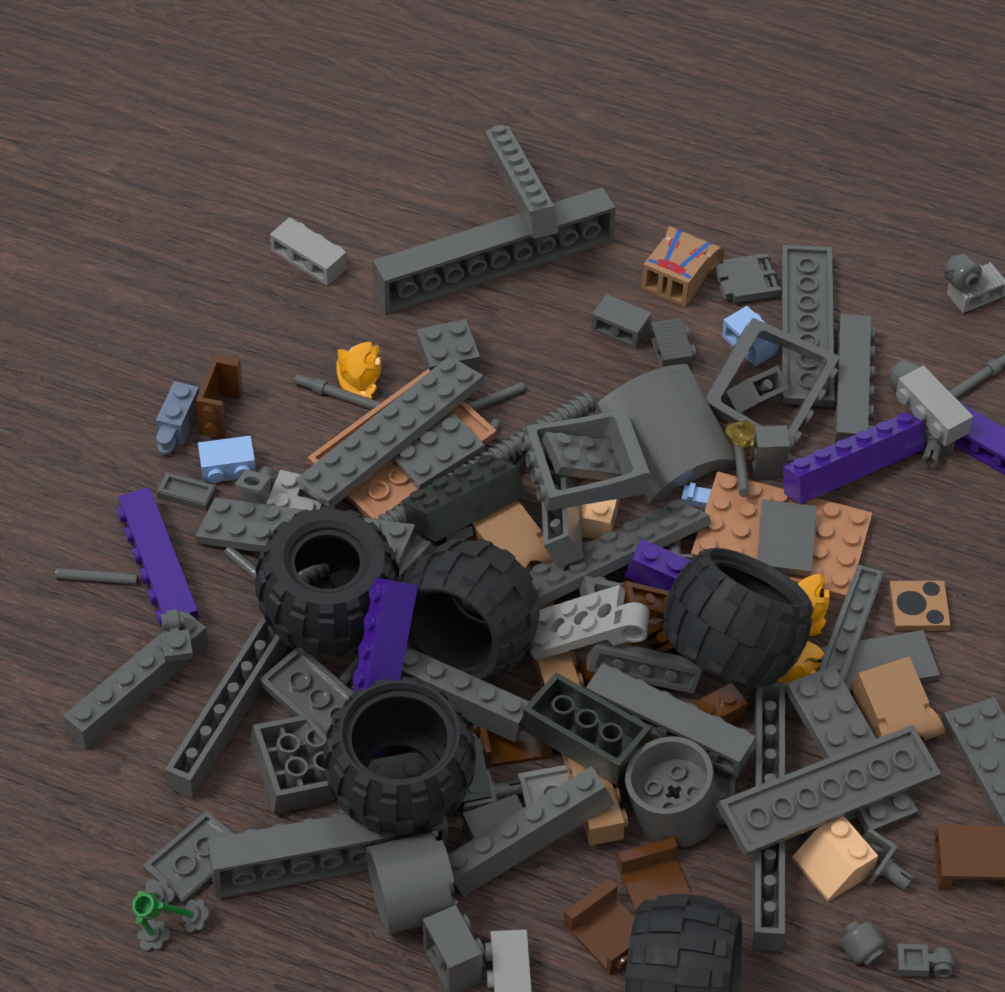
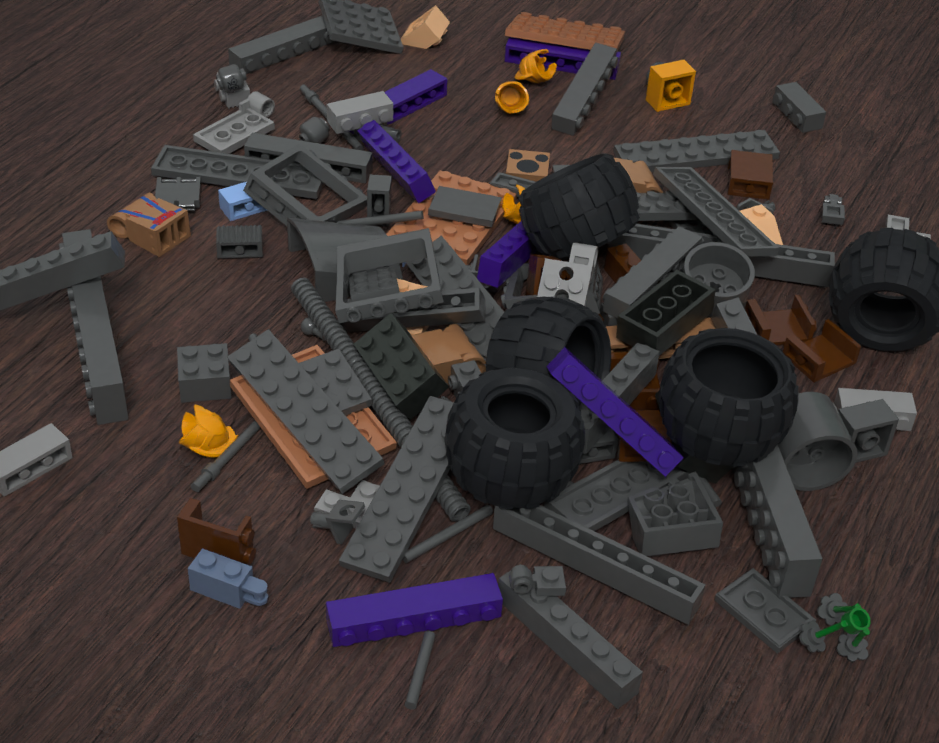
camera: 85 degrees left, 10 degrees down
(186, 491) = (320, 587): dark grey tile -> none
(226, 458) = (292, 545): light blue brick -> none
(621, 321) = (202, 265): dark grey brick -> none
(741, 433) = (357, 210): clear yellow plate -> none
(757, 389) = (314, 196): dark grey brick -> none
(863, 942) = (823, 231): dark grey head -> none
(933, 312) = (236, 128): none -> light grey hinge

